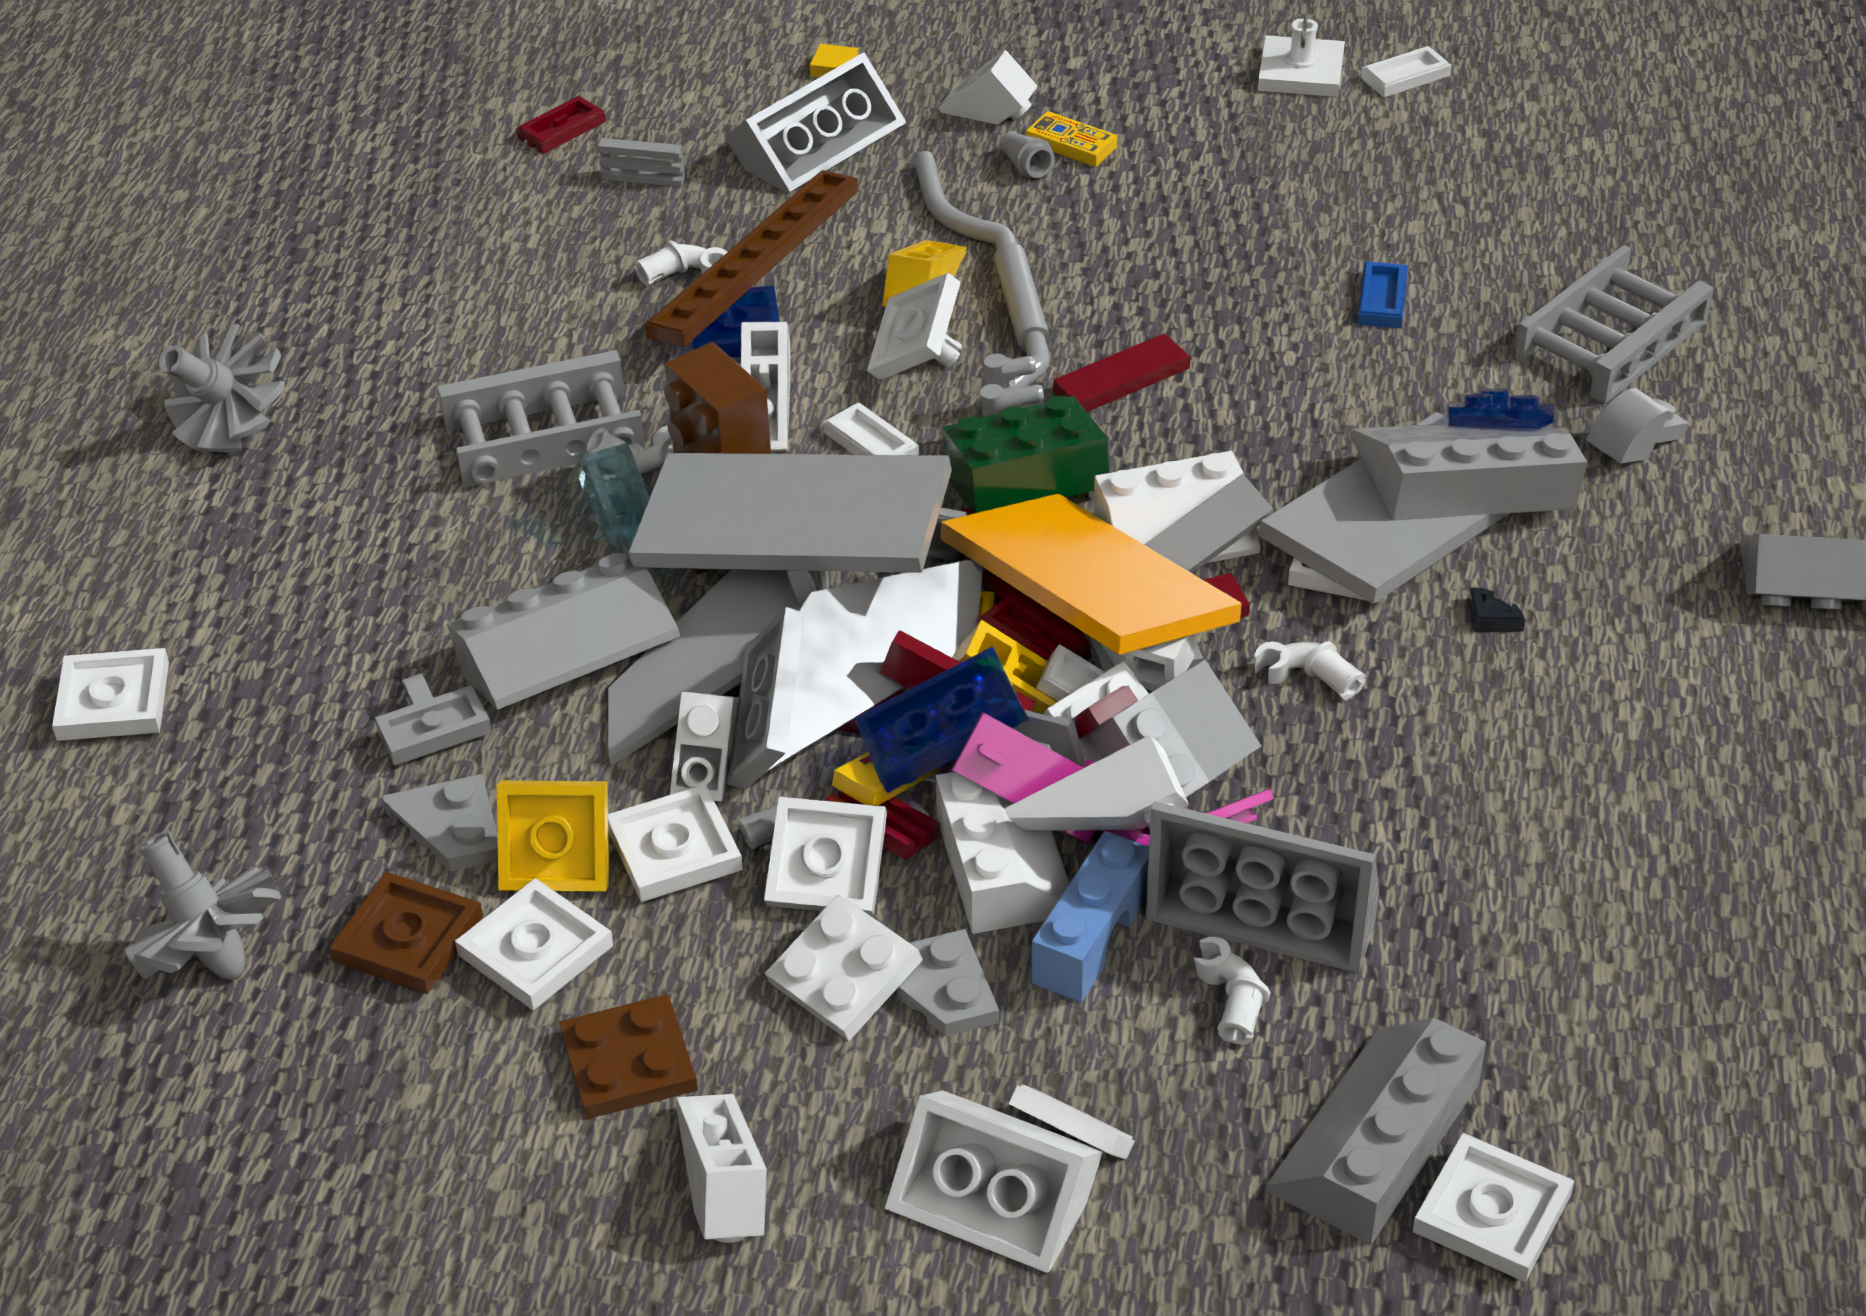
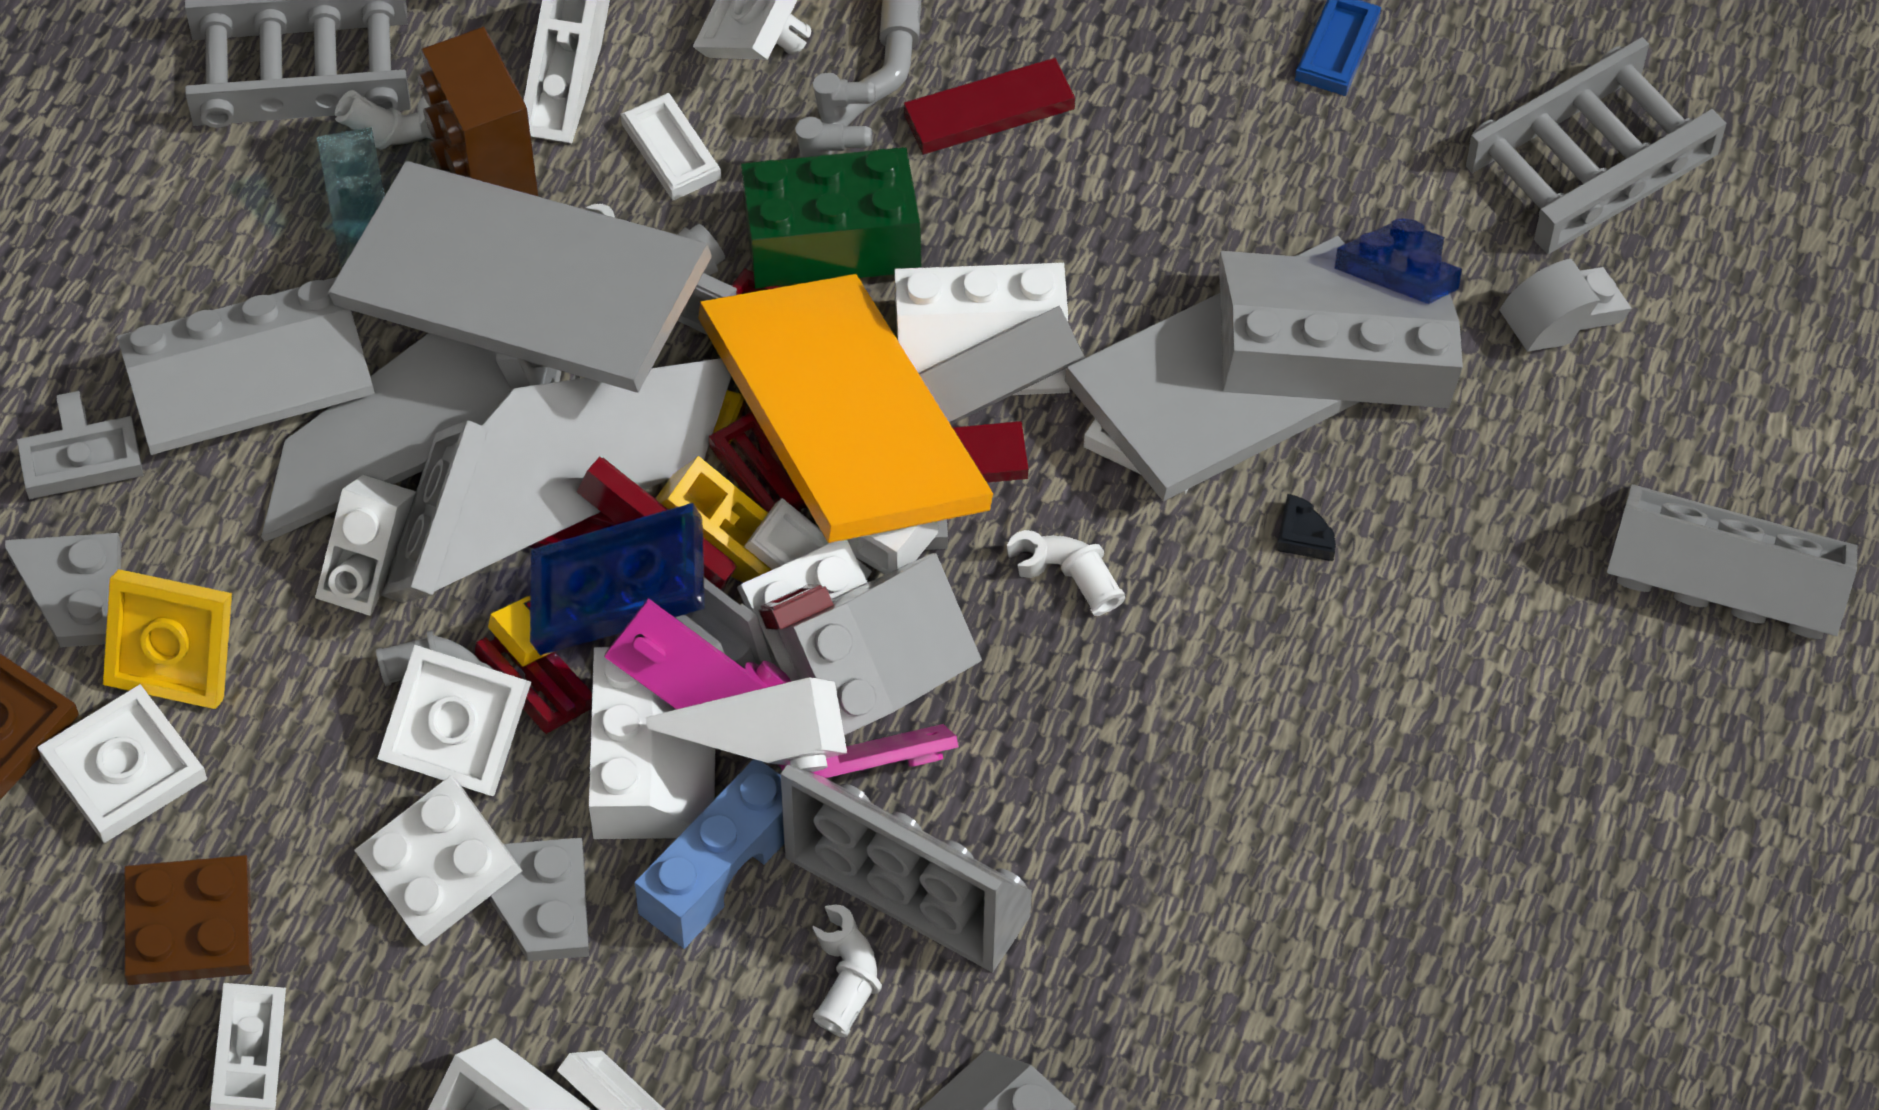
camera: 10 degrees right, 15 degrees up
(674, 843) = (300, 664): white plate -> none

